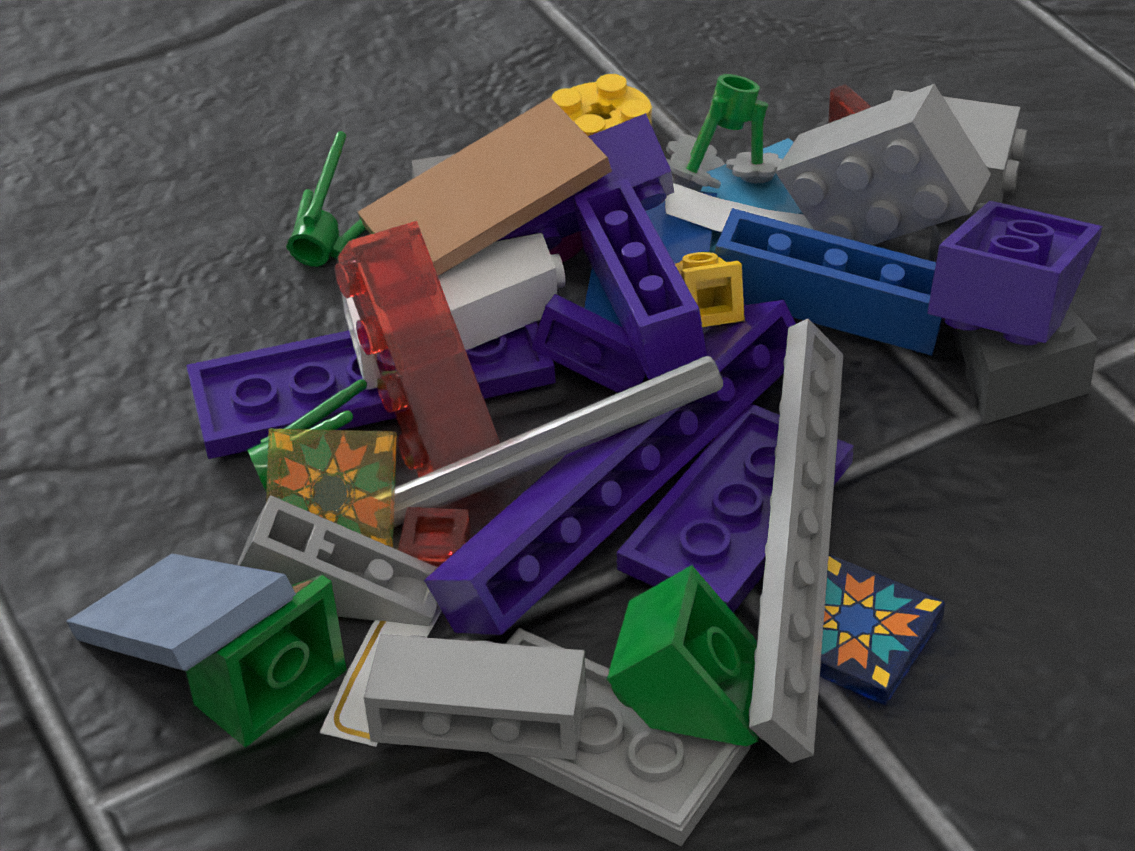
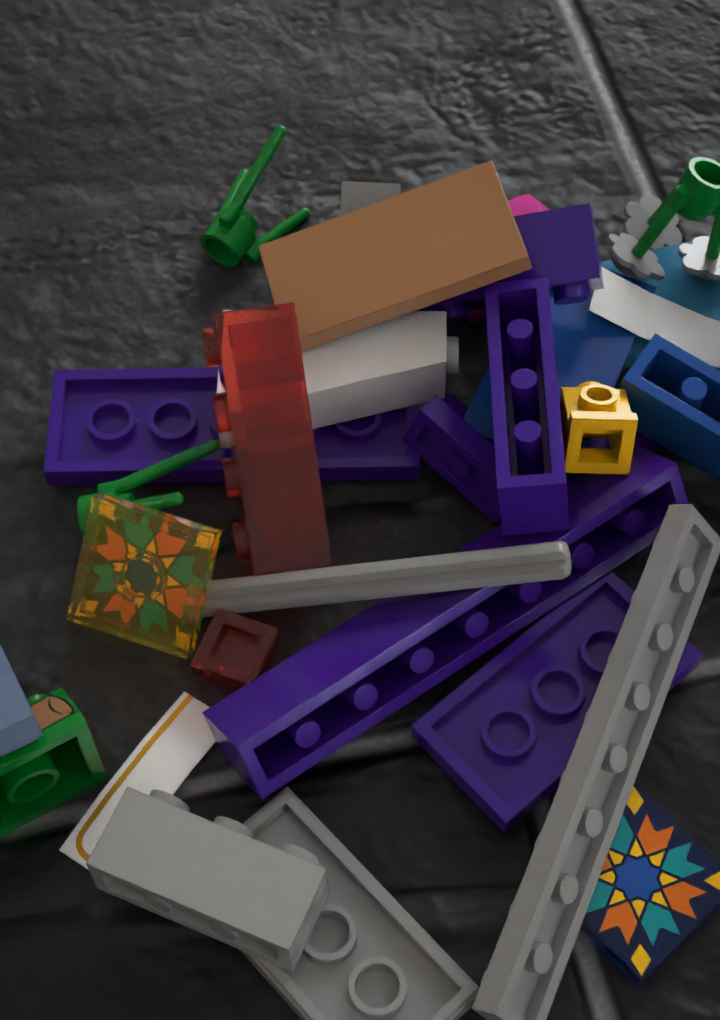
camera: 15 degrees right, 15 degrees up
(365, 575) = (121, 668): light grey slope -> none
(600, 100) = (574, 124): yellow plate -> none
(686, 662) = (435, 895): green slope -> none

